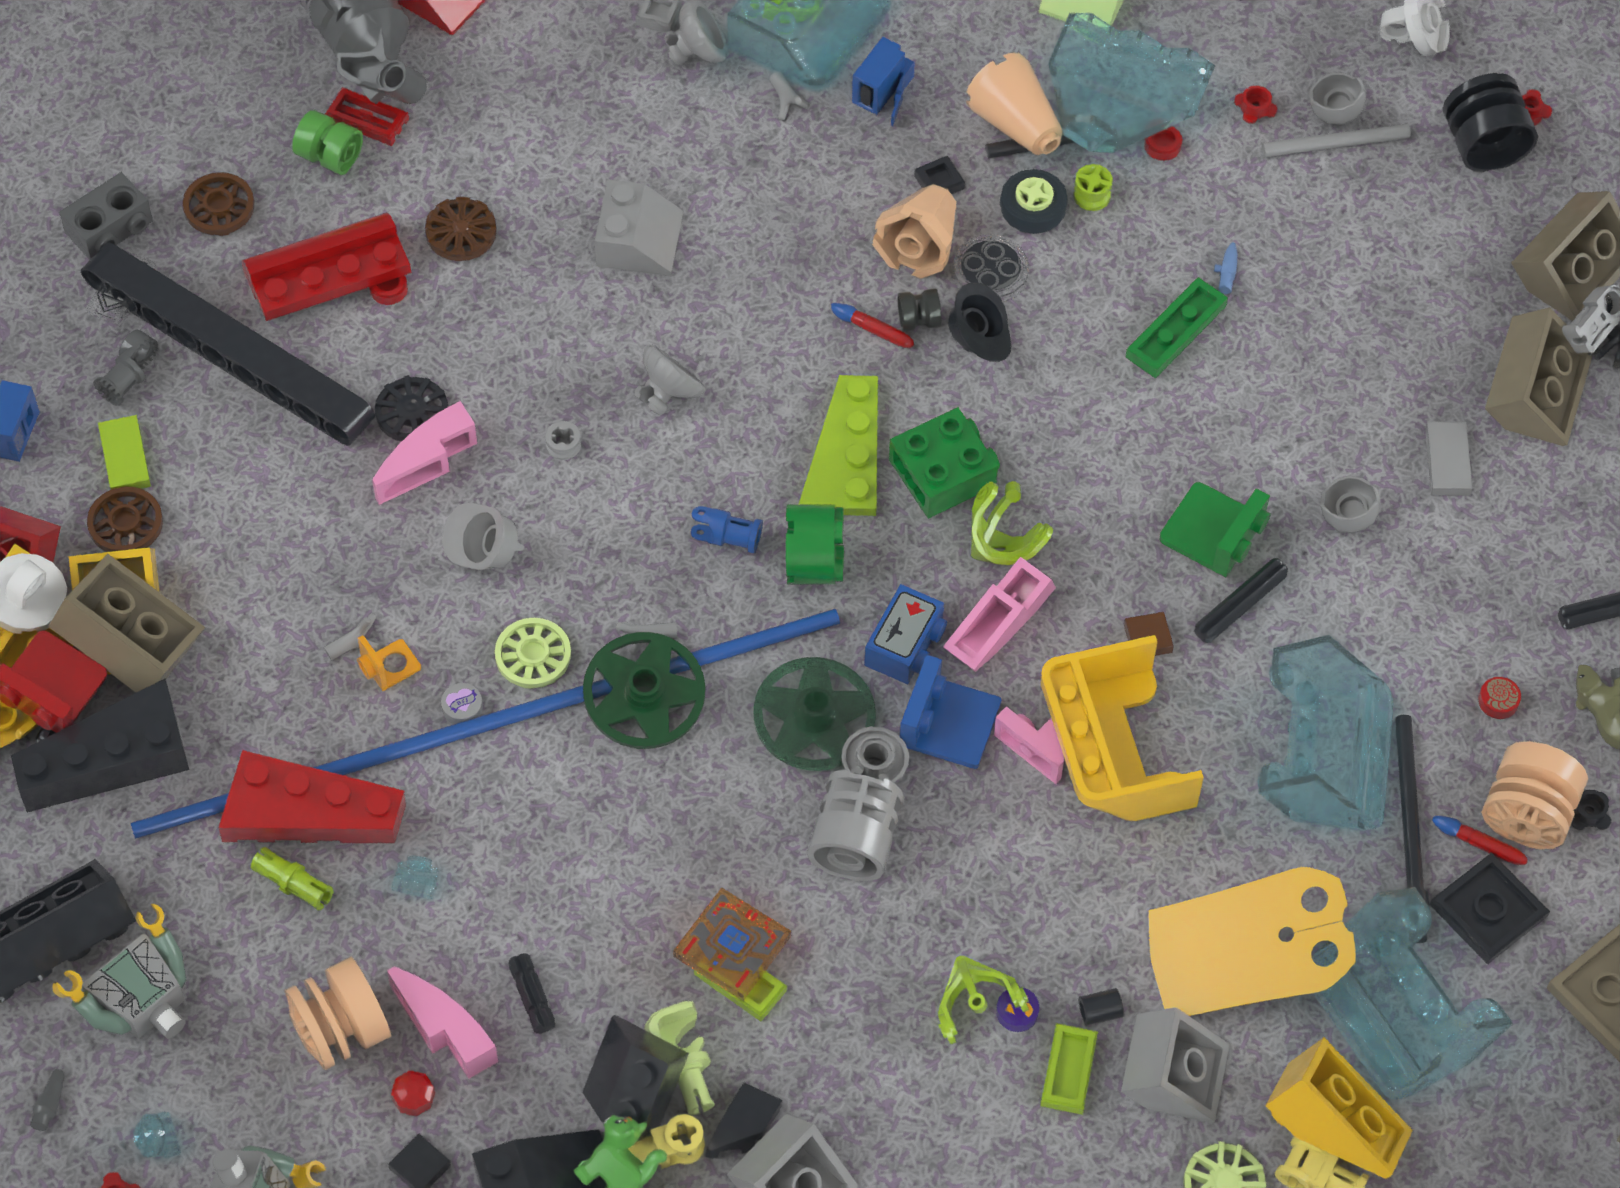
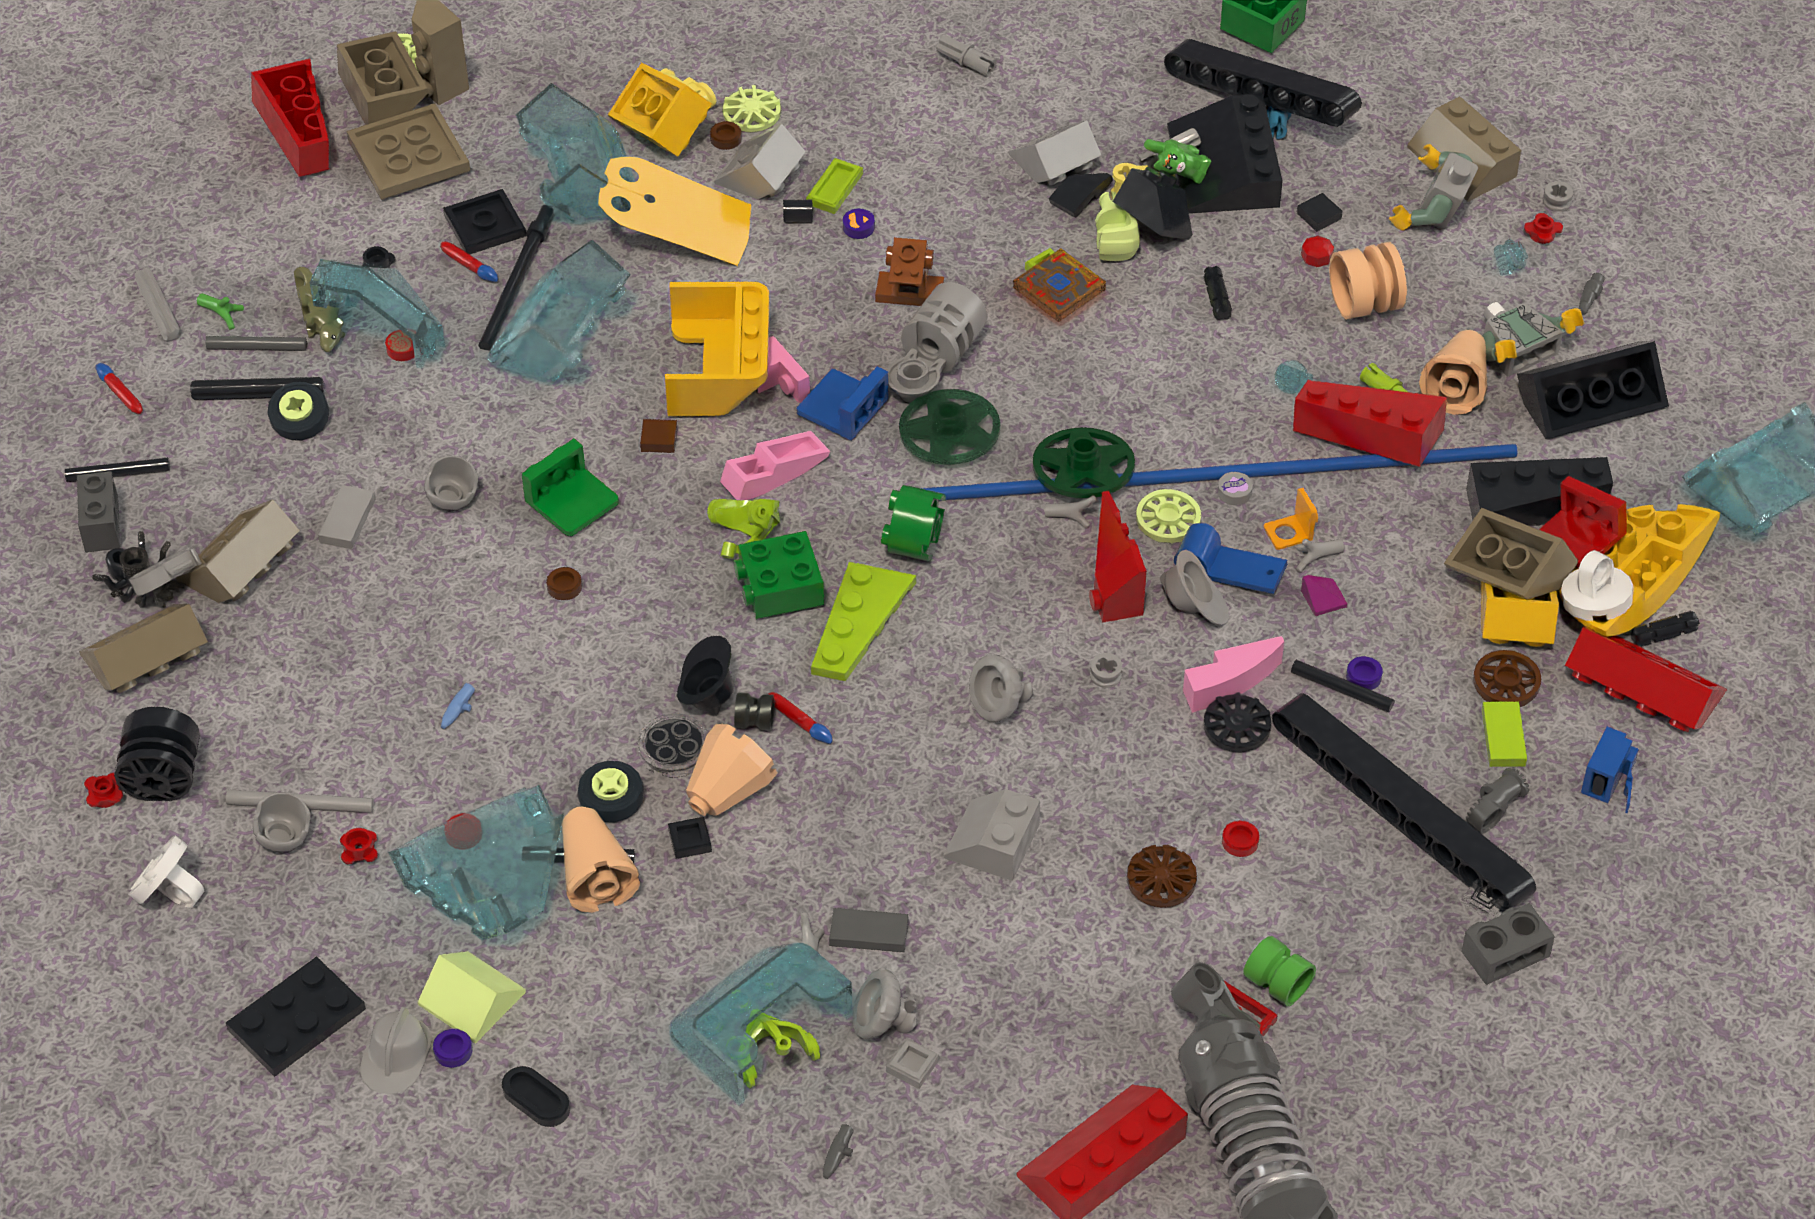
camera: 165 degrees left, 10 degrees down
(208, 911) = (1458, 373): none -> light nougat cone
(218, 204) = (1395, 948): reddish brown wheel -> none
(282, 496) = (1365, 672): none -> dark purple tile
(304, 477) = (1343, 686): none -> black bar
(326, 266) = (1298, 857): red brick -> none
(340, 585) = (1322, 594): none -> magenta slope
(443, 1022) = (1288, 279): bright pink slope -> none
(453, 599) = (1229, 564): none -> blue door
(572, 535) = (1118, 569): none -> red wedge
(726, 529) = (983, 568): blue piece -> none
(735, 123) = (868, 930): none -> dark grey tile
(880, 76) = (712, 930): blue piece -> none
(905, 634) = (858, 461): brick -> none
(920, 892) = (908, 267): none -> dark orange tile
(964, 975) = (893, 223): lime helmet -> none
(1088, 179) = (553, 782): lime wheel -> none
(1176, 327) = (528, 656): green plate -> none
(1177, 427) = (564, 583): none -> reddish brown tile
(1241, 600) = (588, 438): black axle -> none
(1242, 1125) = (725, 135): none -> reddish brown tile
(1535, 795) = (421, 250): light nougat wheel -> none
(1545, 689) = (386, 292): none -> clear light blue panel
(1569, 569) = (296, 423): none -> black wheel

